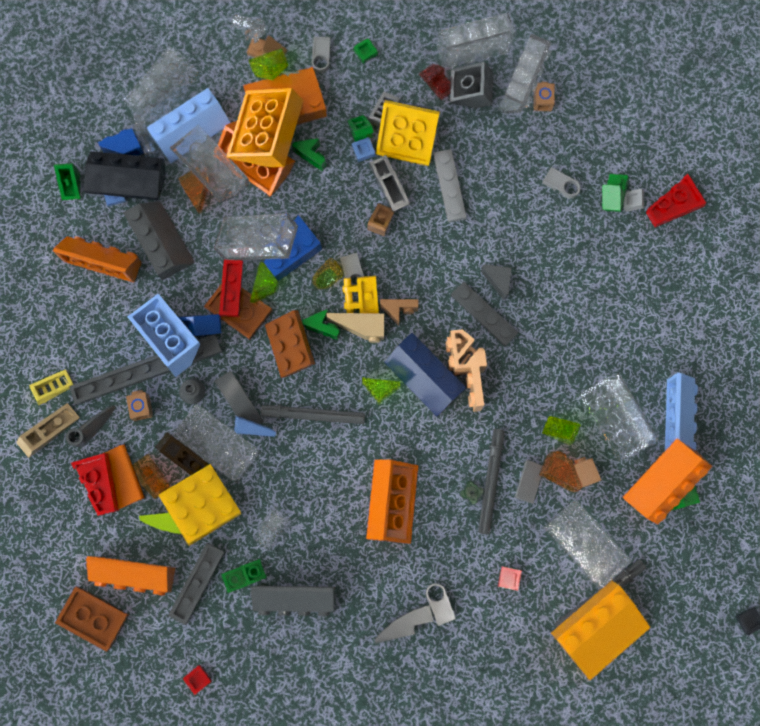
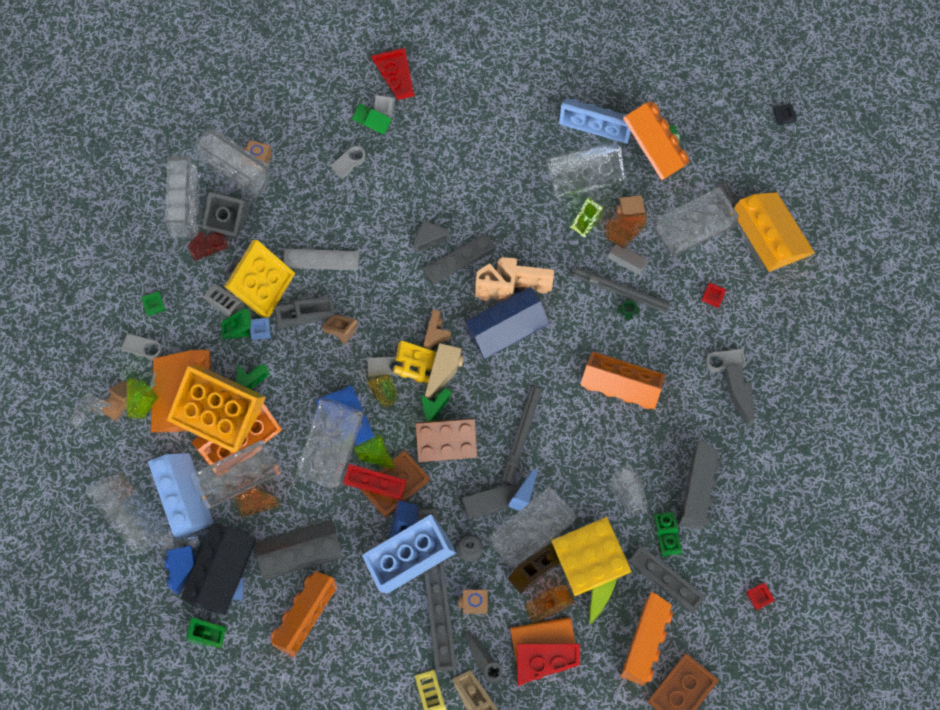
camera: 80 degrees left, 10 degrees down
(380, 389) = (512, 366): clear neon green slope -> none

